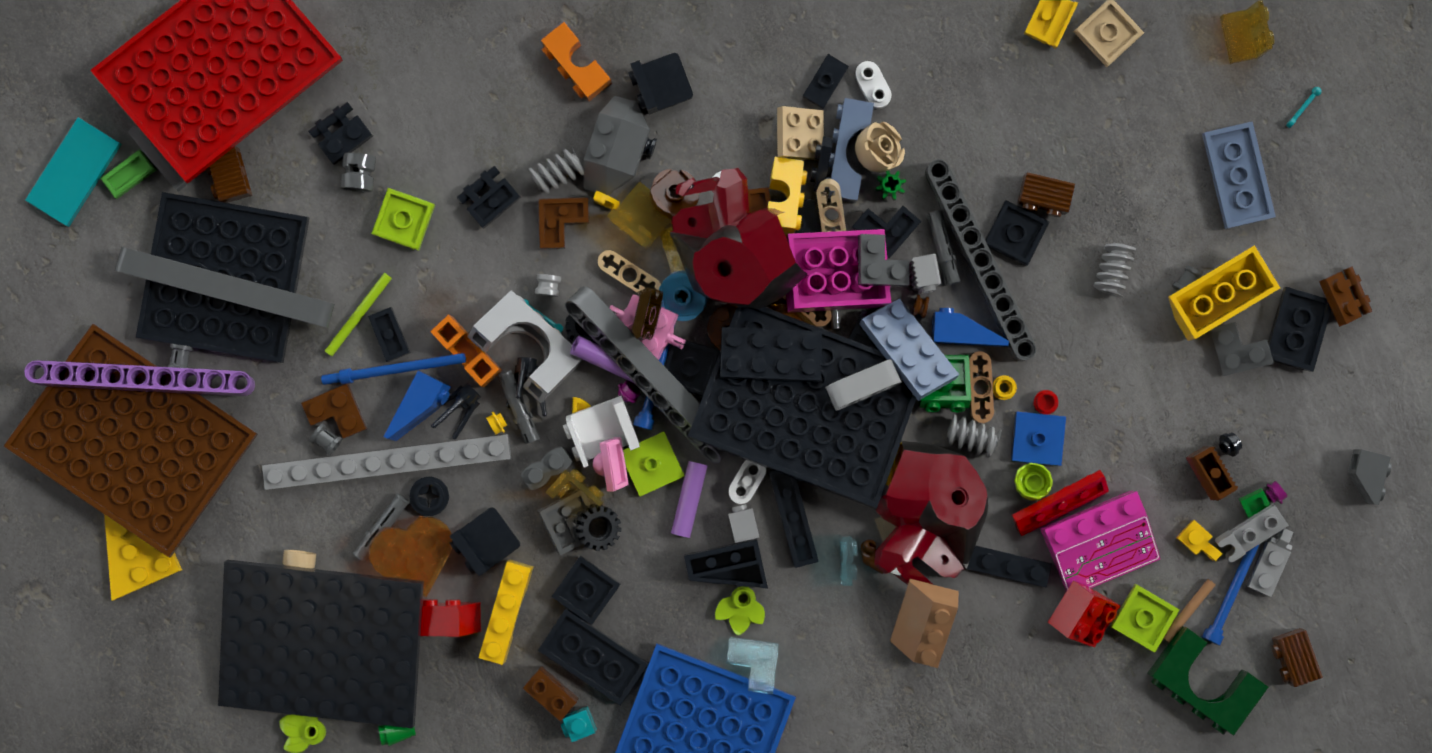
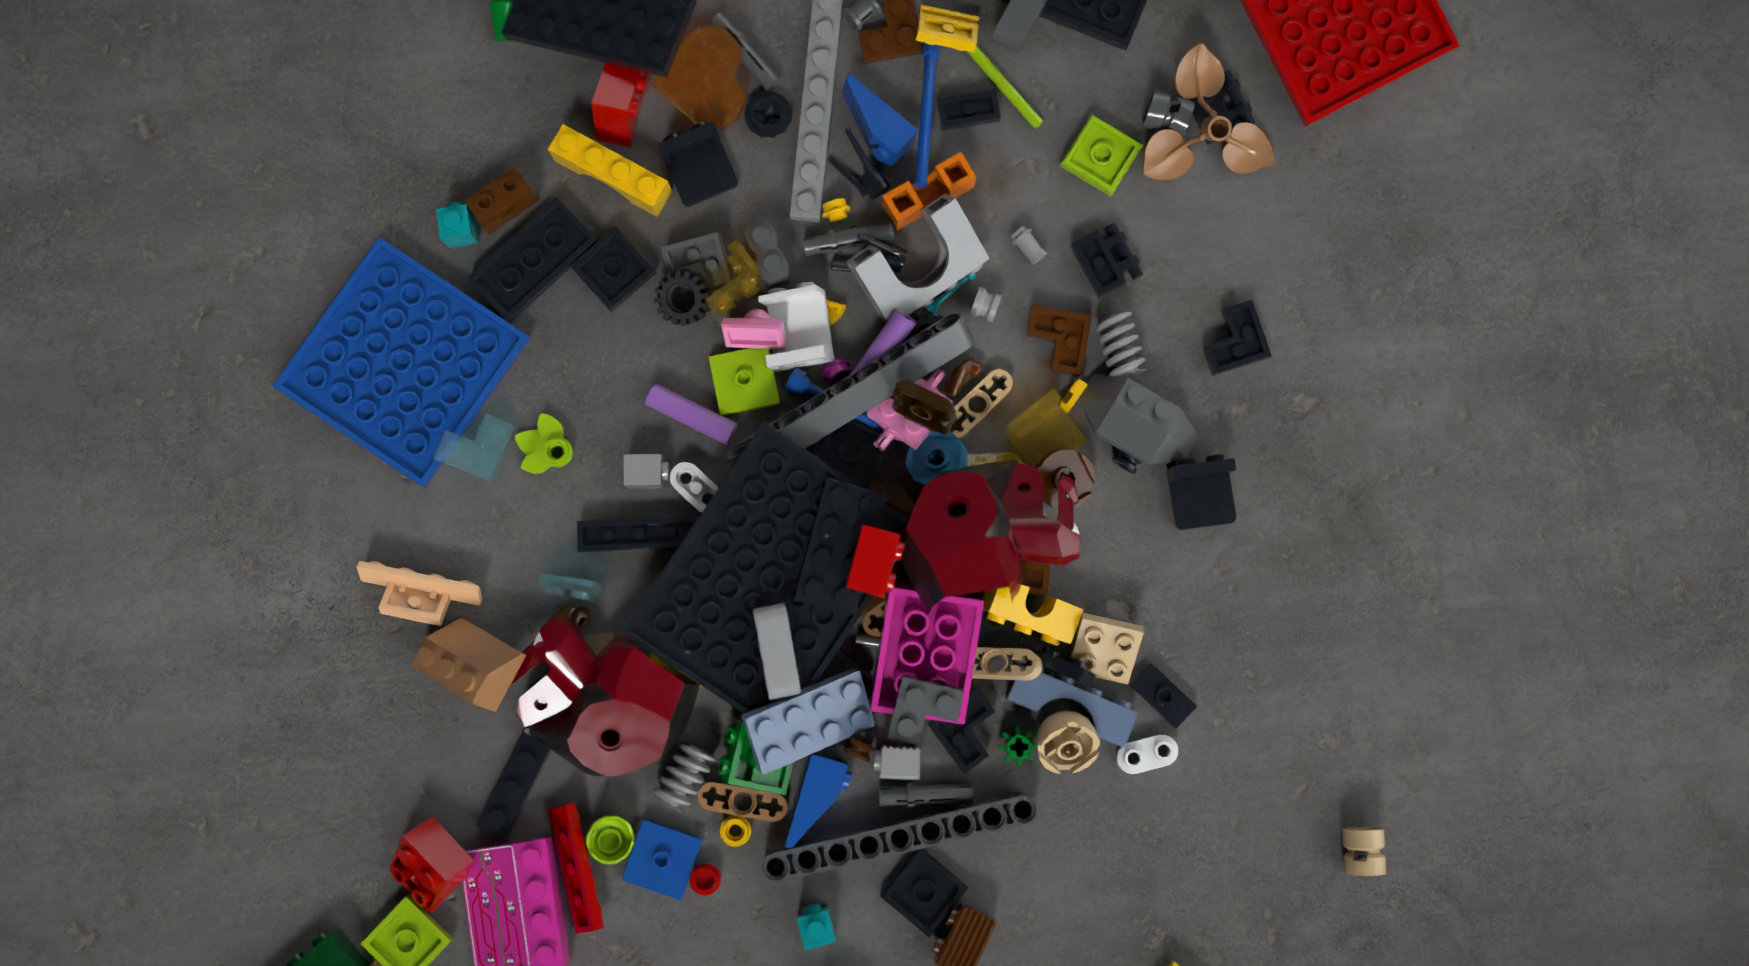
camera: 95 degrees right, 5 degrees down
(326, 366) = (947, 28): none -> yellow plate
(374, 106) = (1247, 146): none -> medium nougat plant
(490, 262) = (1028, 245): none -> light grey pin
(531, 72) = (1246, 340): none -> black plate
(588, 80) = (1271, 384): orange arch -> none
(607, 293) = (959, 374): none -> reddish brown arm
(728, 564) = (600, 441): black wedge -> none
(778, 324) = (874, 561): none -> red slope
(882, 679) = (416, 594): none -> light nougat bracket
(1061, 308) = (816, 926): none -> teal brick

